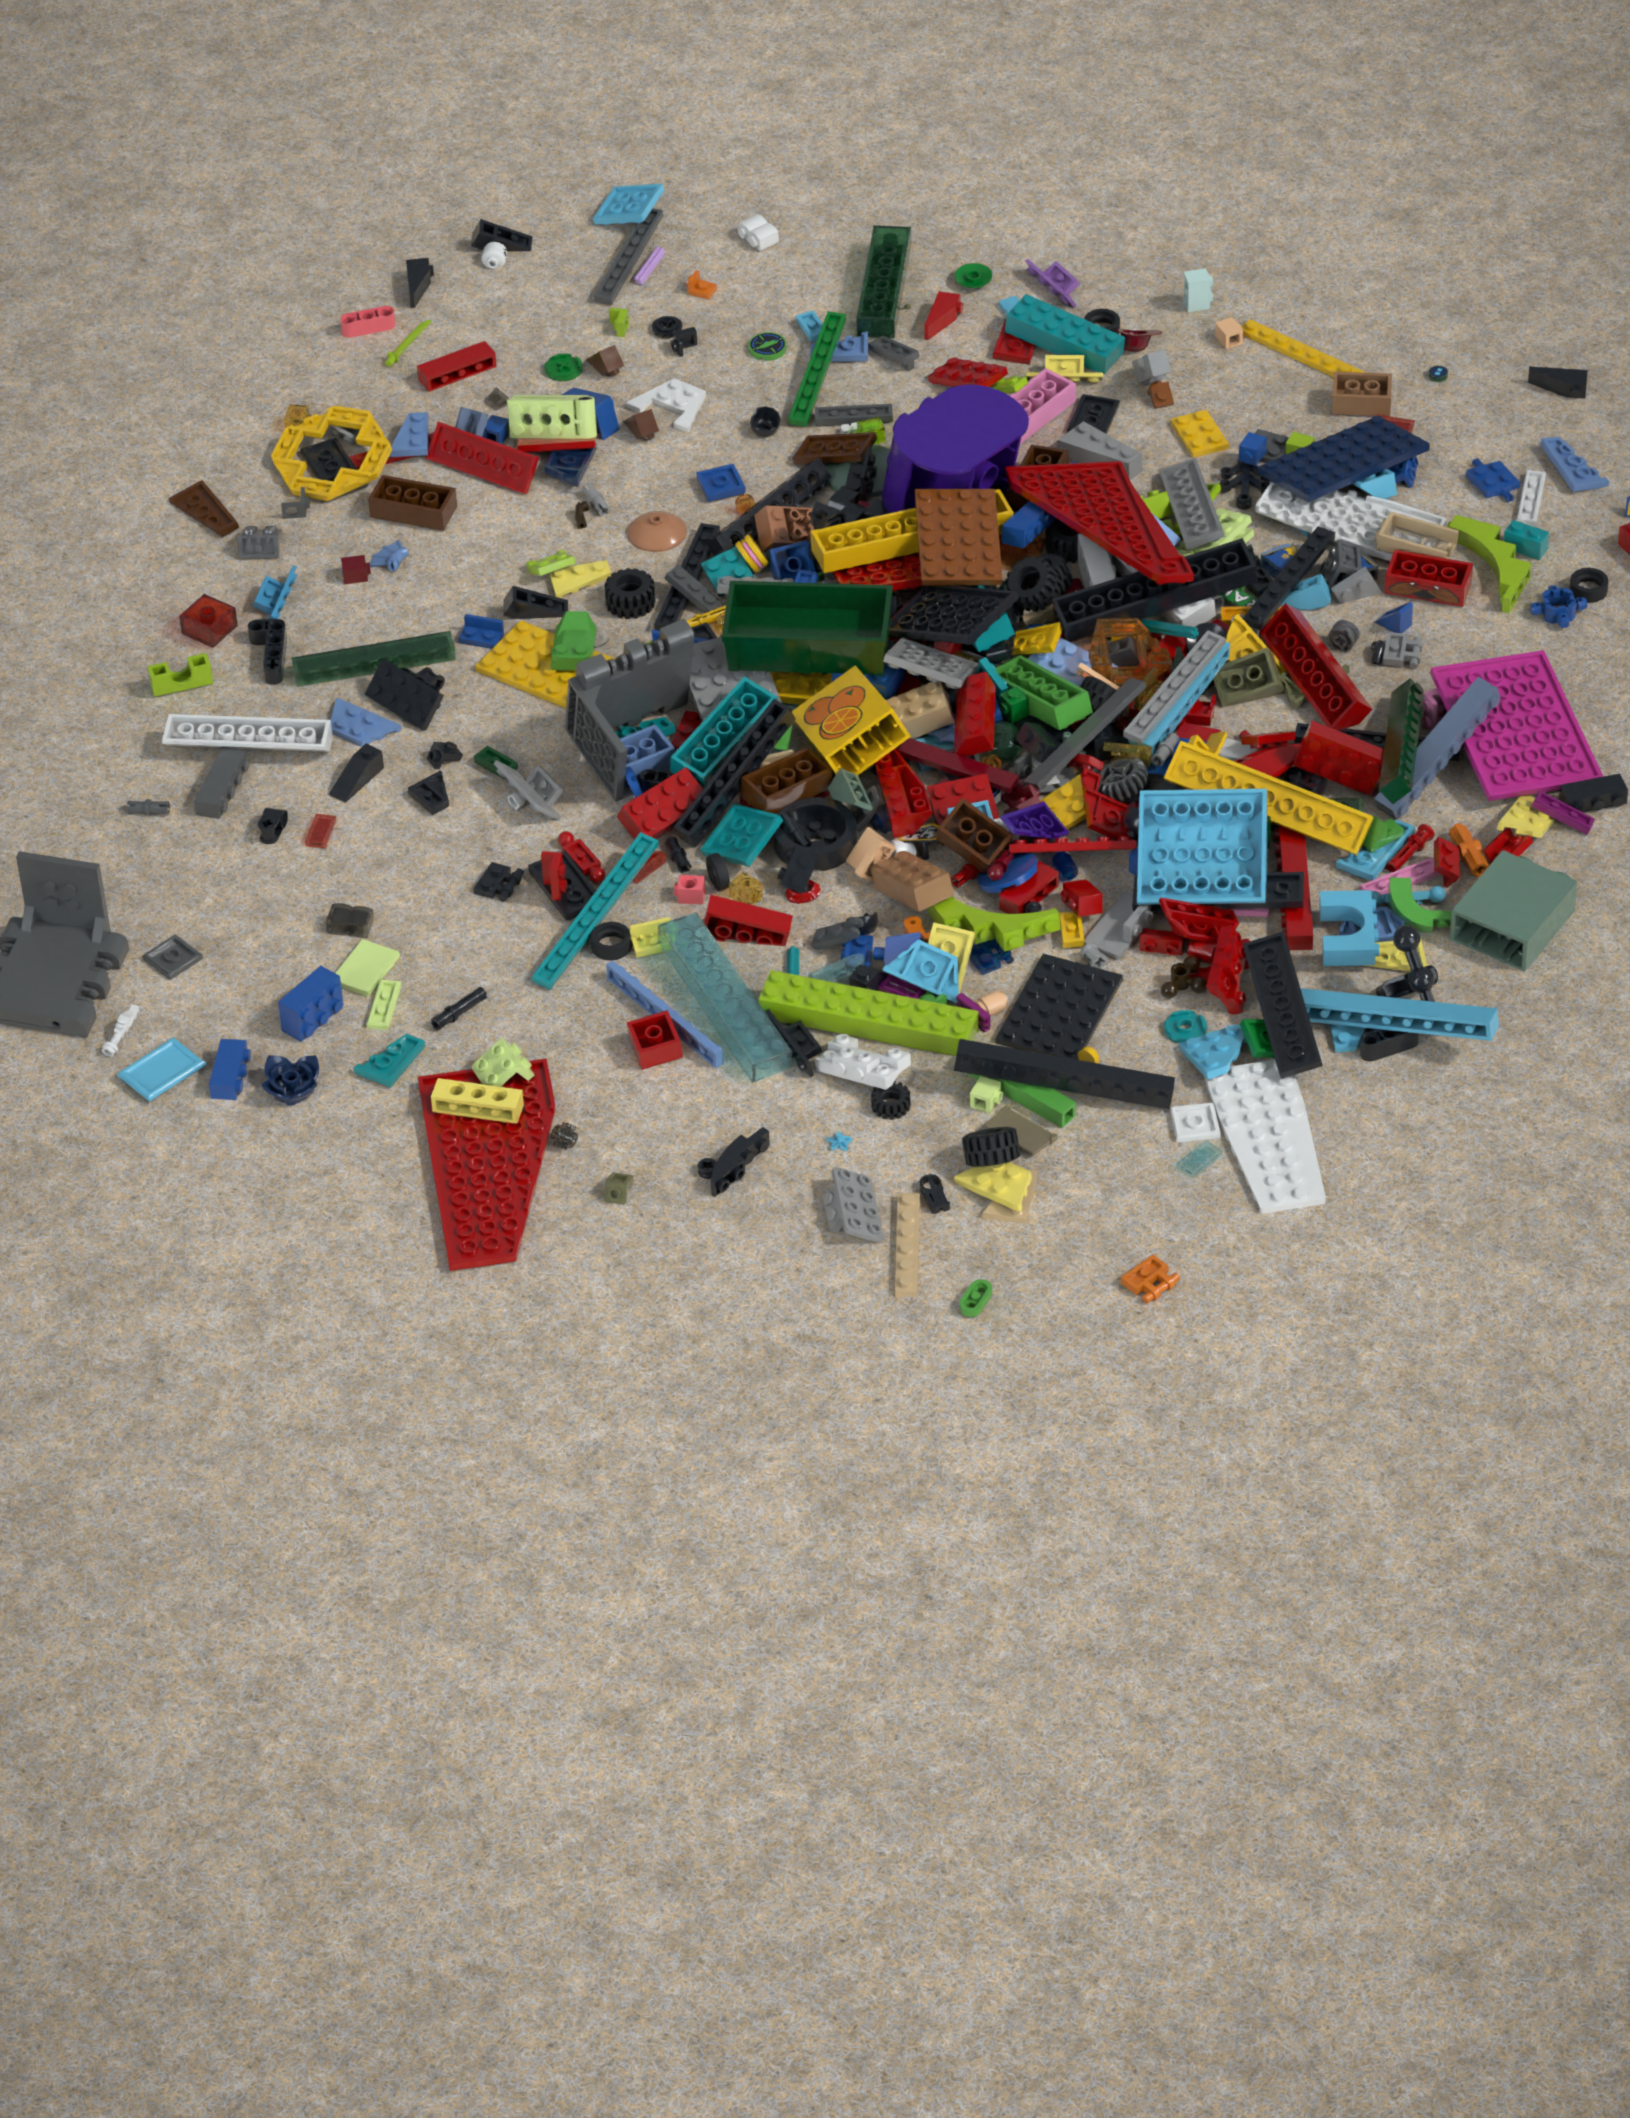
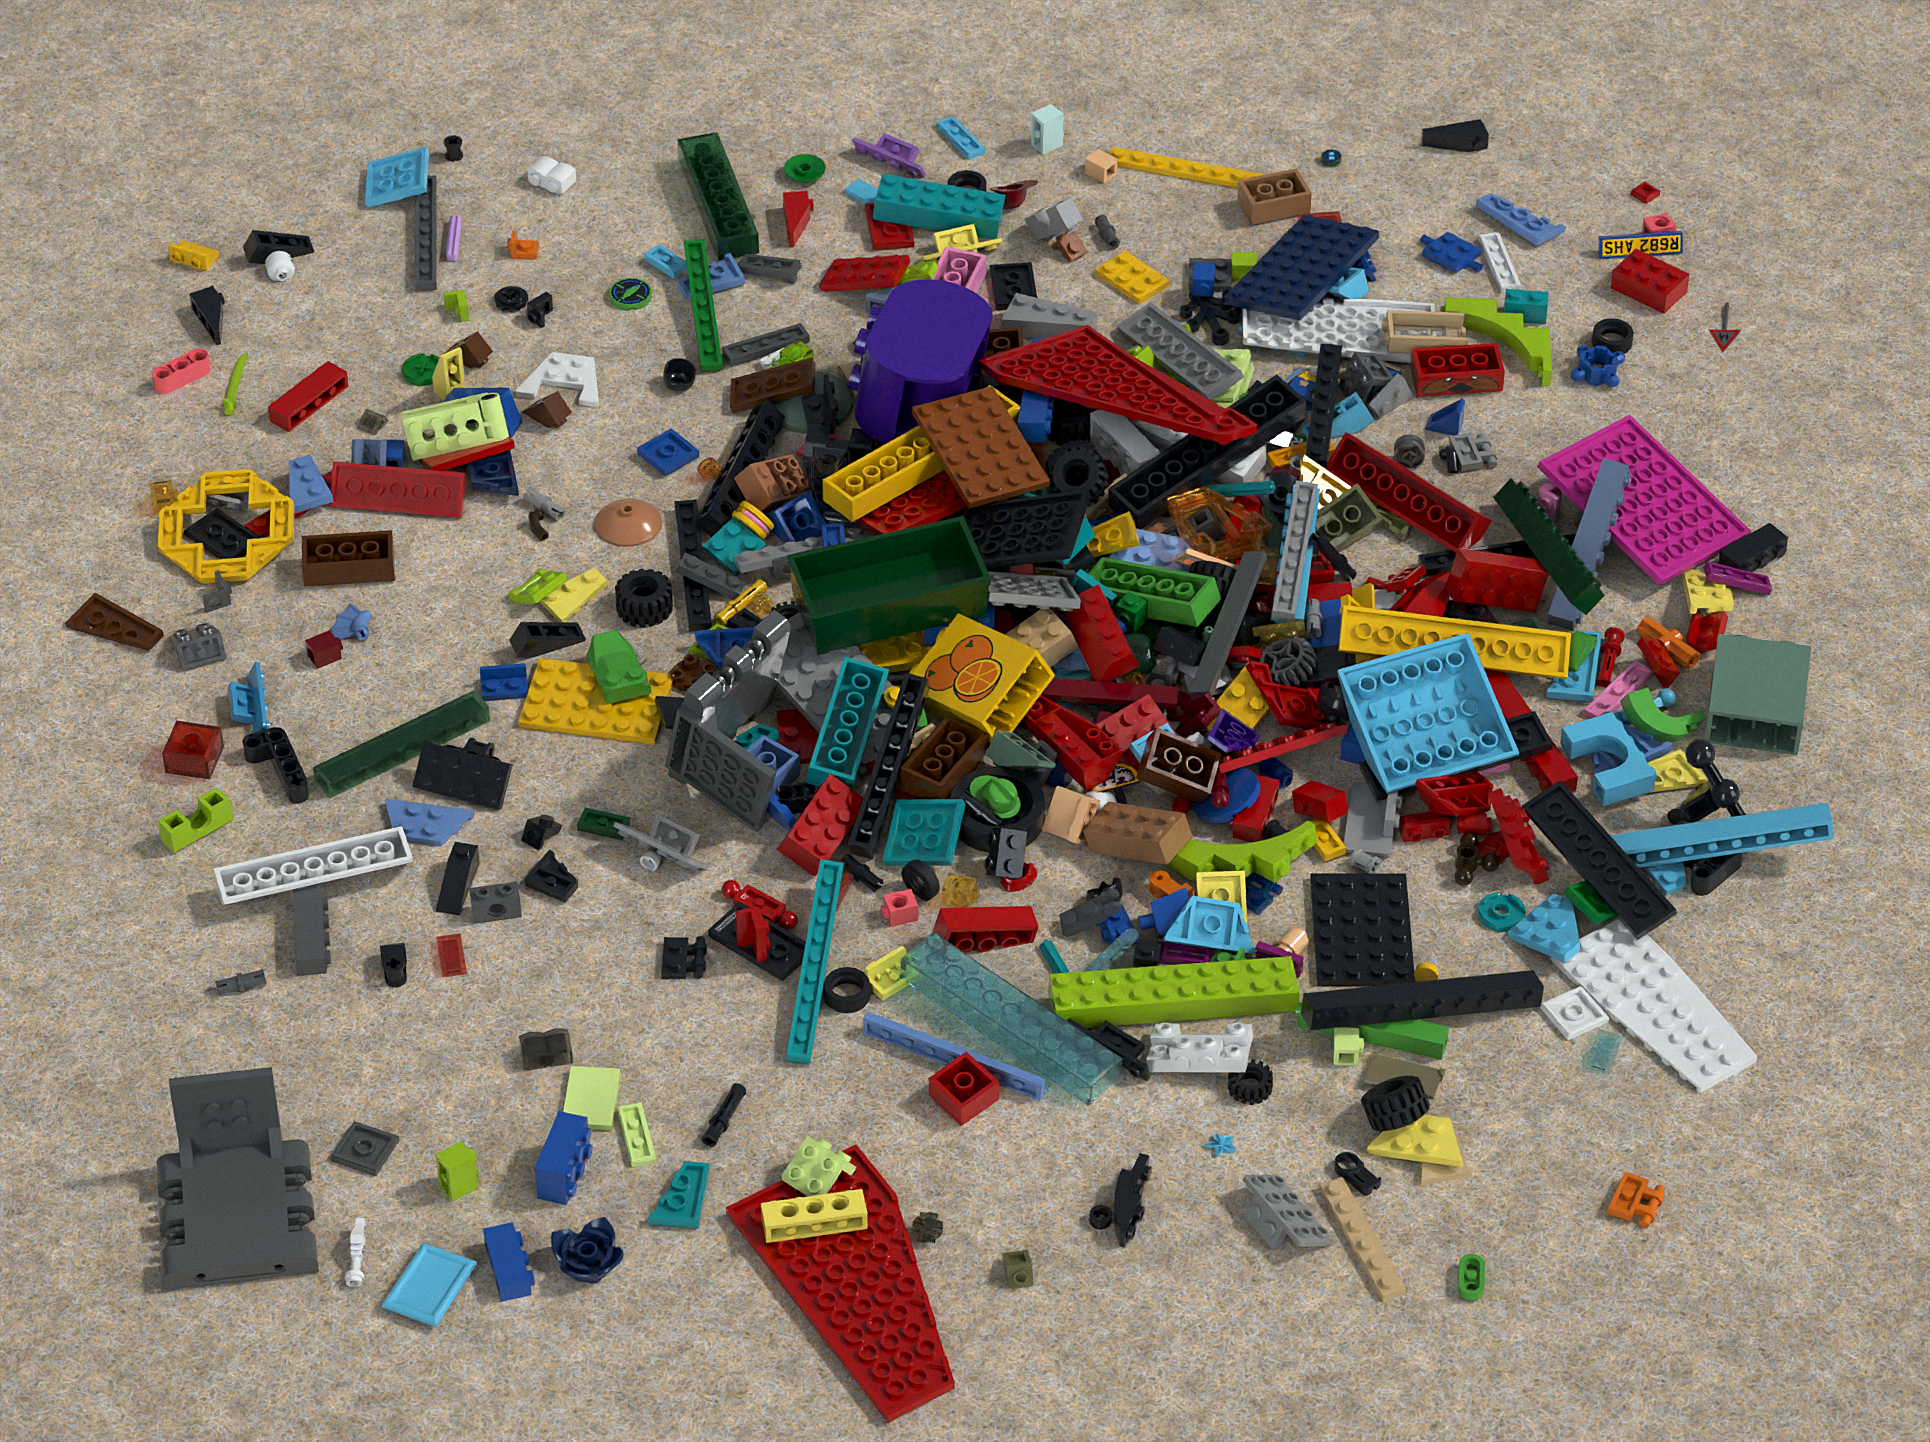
camera: 25 degrees left, 0 degrees up
(226, 990) = (457, 1170): none -> lime brick
(374, 799) = (495, 902): none -> dark grey brick
(431, 230) = (192, 255): none -> yellow bracket
(572, 371) = (448, 373): none -> light yellow slope
(690, 191) = (453, 146): none -> black bush
(816, 822) = (998, 794): none -> bright green piece
(1124, 281) = (960, 137): none -> medium azure tile
(1200, 390) = (1107, 231): none -> dark grey pin
(1219, 709) = (1337, 560): none -> black pin

